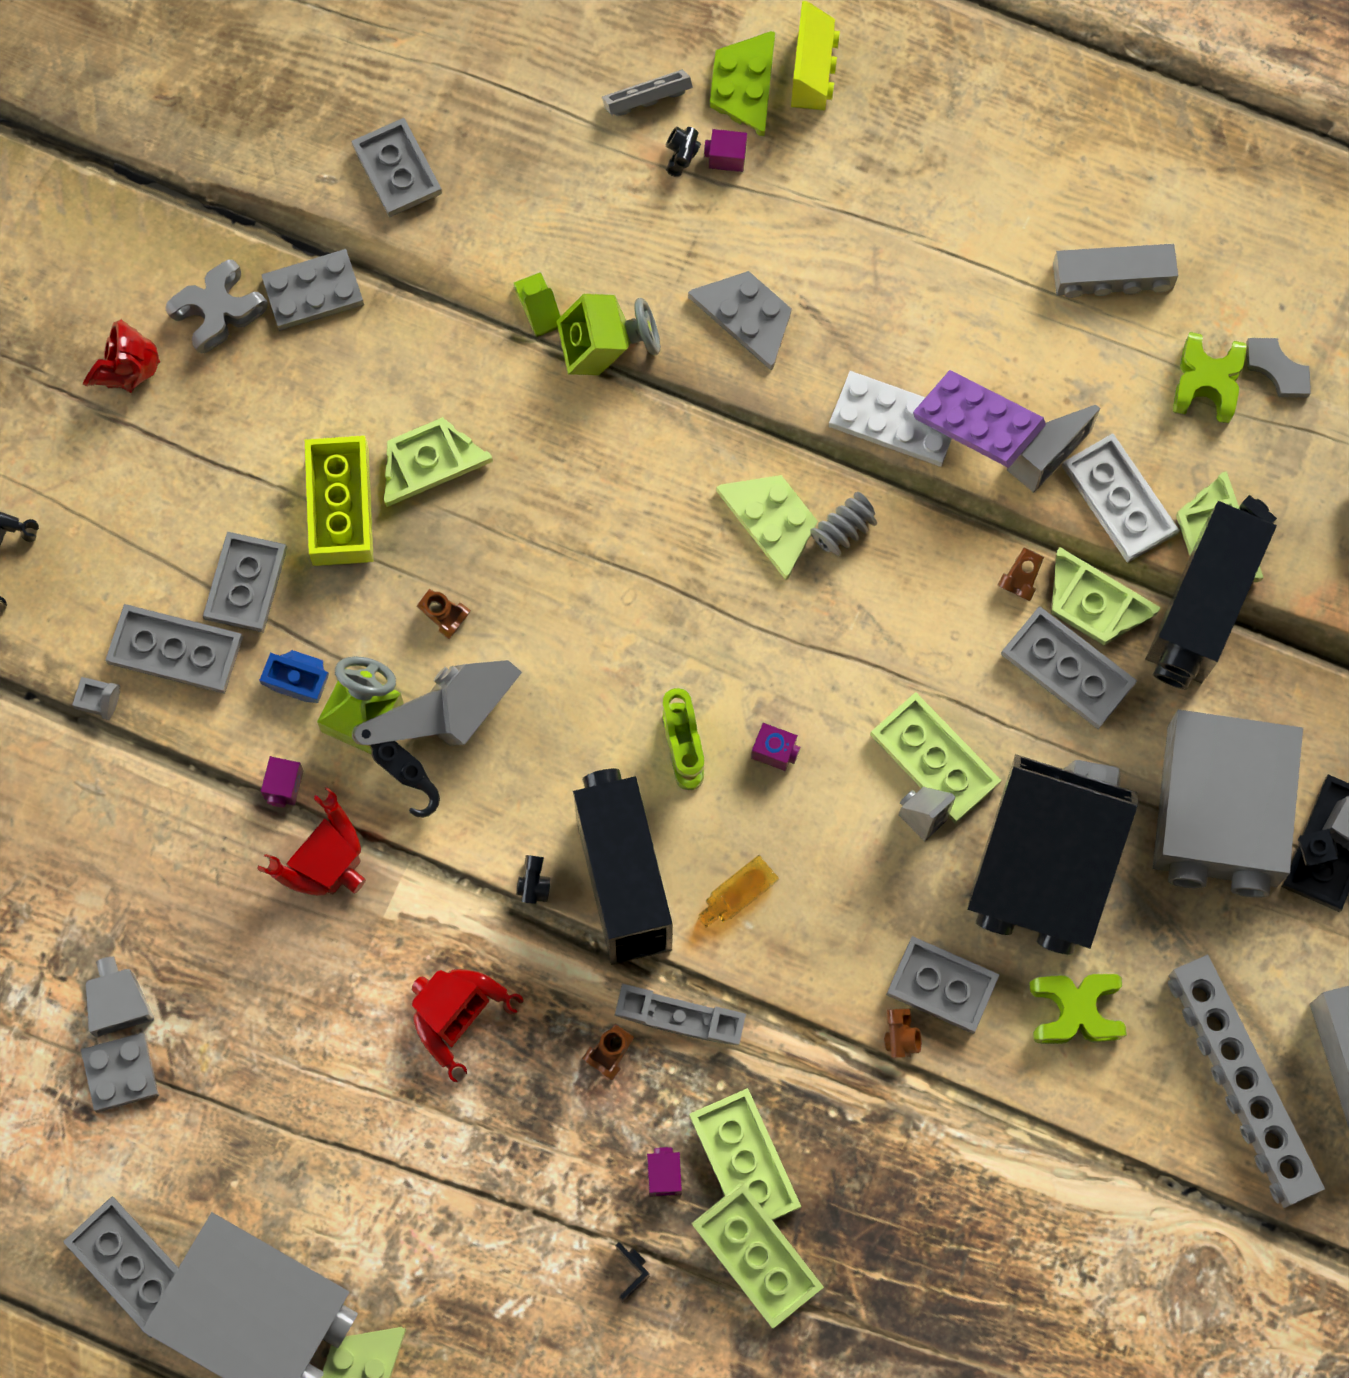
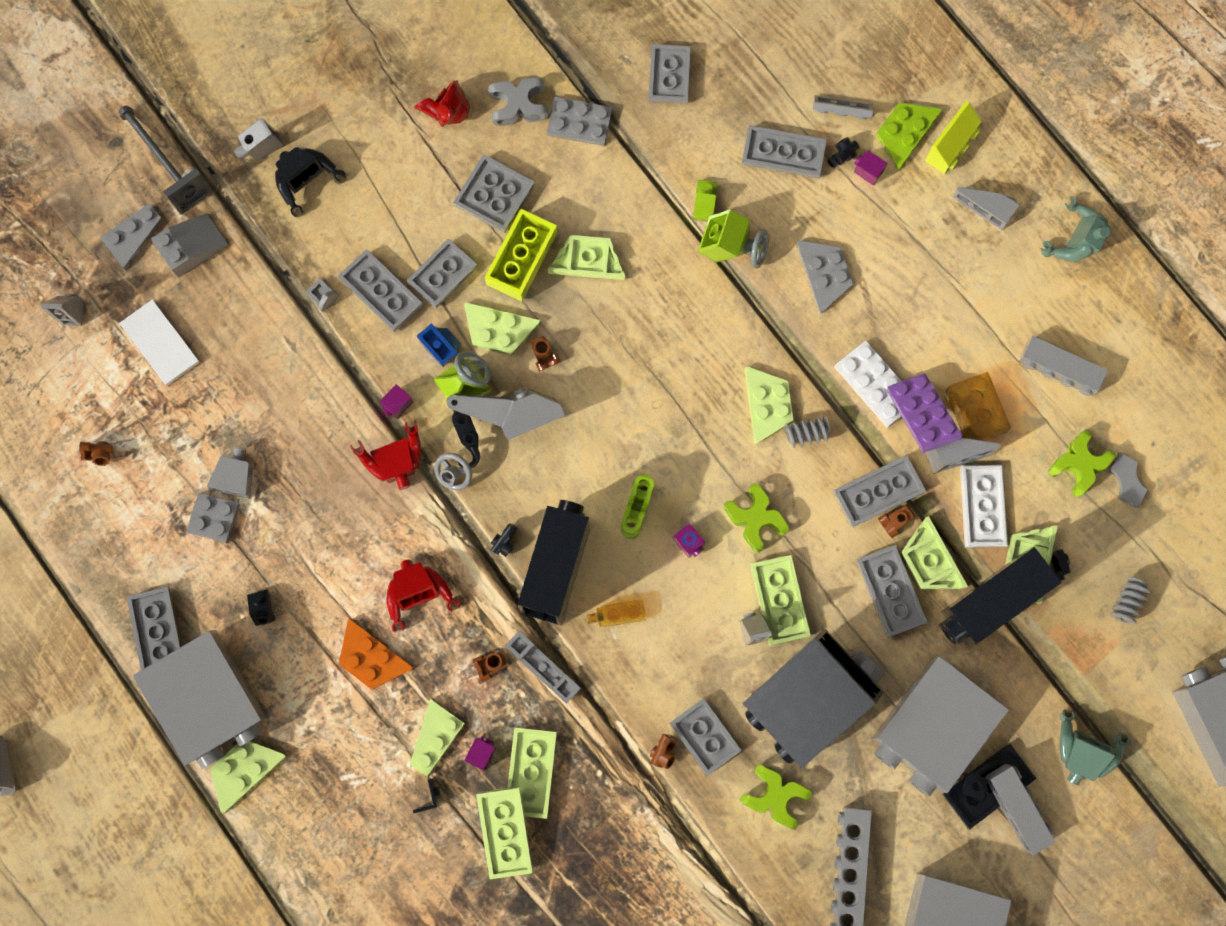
camera: 30 degrees right, 5 degrees up
(254, 441) = (494, 193): none -> light grey plate
(256, 1152) = (260, 607): none -> black bracket
(362, 614) = (498, 329): none -> yellowish green wing
(411, 844) = (450, 473): none -> light grey piece
(443, 1136) = (369, 658): none -> orange wing
(591, 1188) = (435, 737): none -> yellowish green wing
(604, 188) = (784, 151): none -> light grey plate
(843, 670) = (756, 518): none -> lime piece
(907, 119) = (989, 205): none -> light grey slope
(979, 550) = (879, 491): none -> light grey plate
(1041, 377) = (978, 408): none -> clear yellow brick
(1051, 95) = (1087, 237): none -> sand green torso

